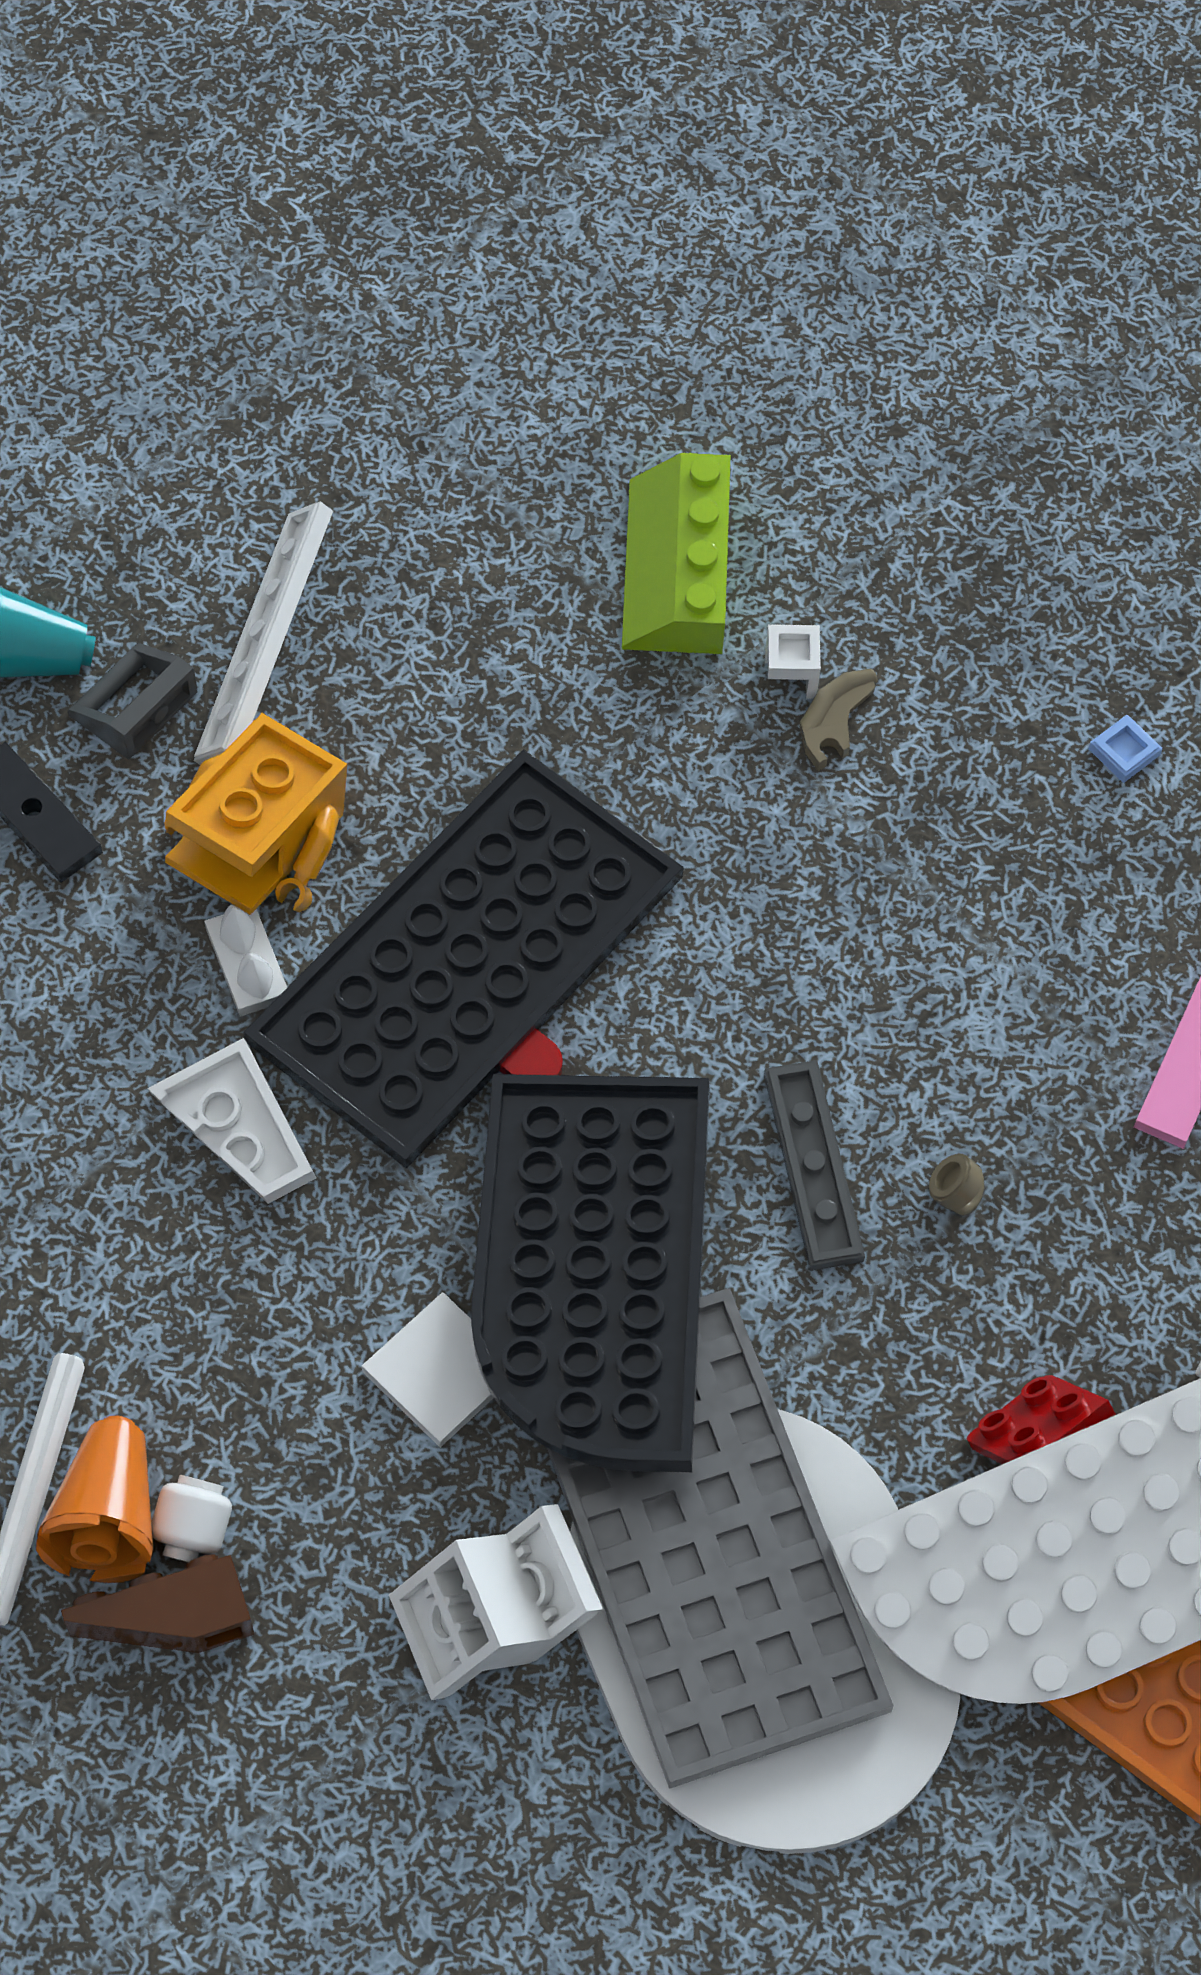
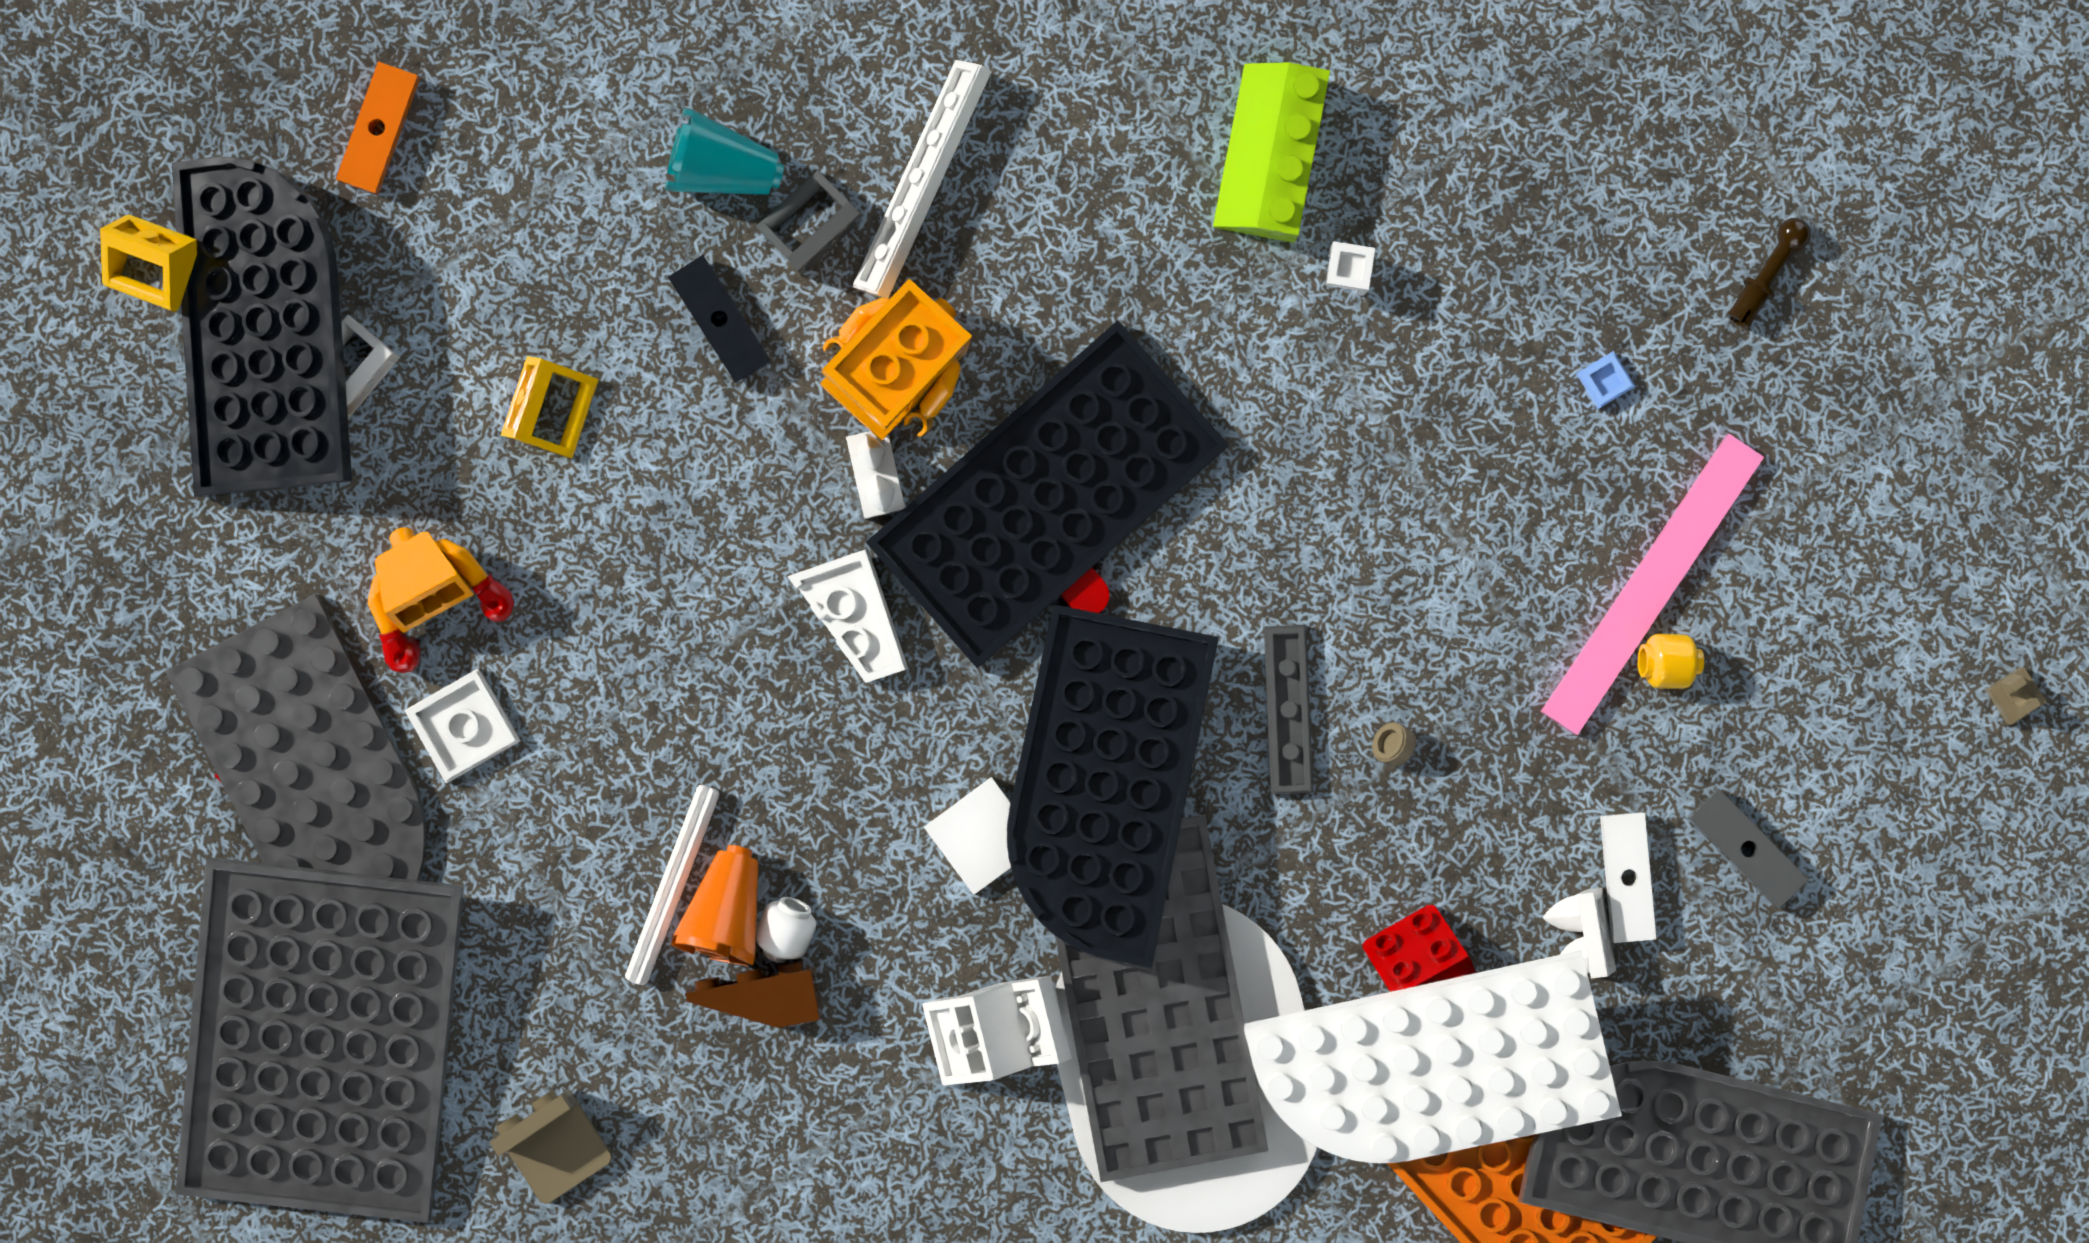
camera: 10 degrees right, 25 degrees up
(828, 714) = (1370, 314): dark tan piece -> none

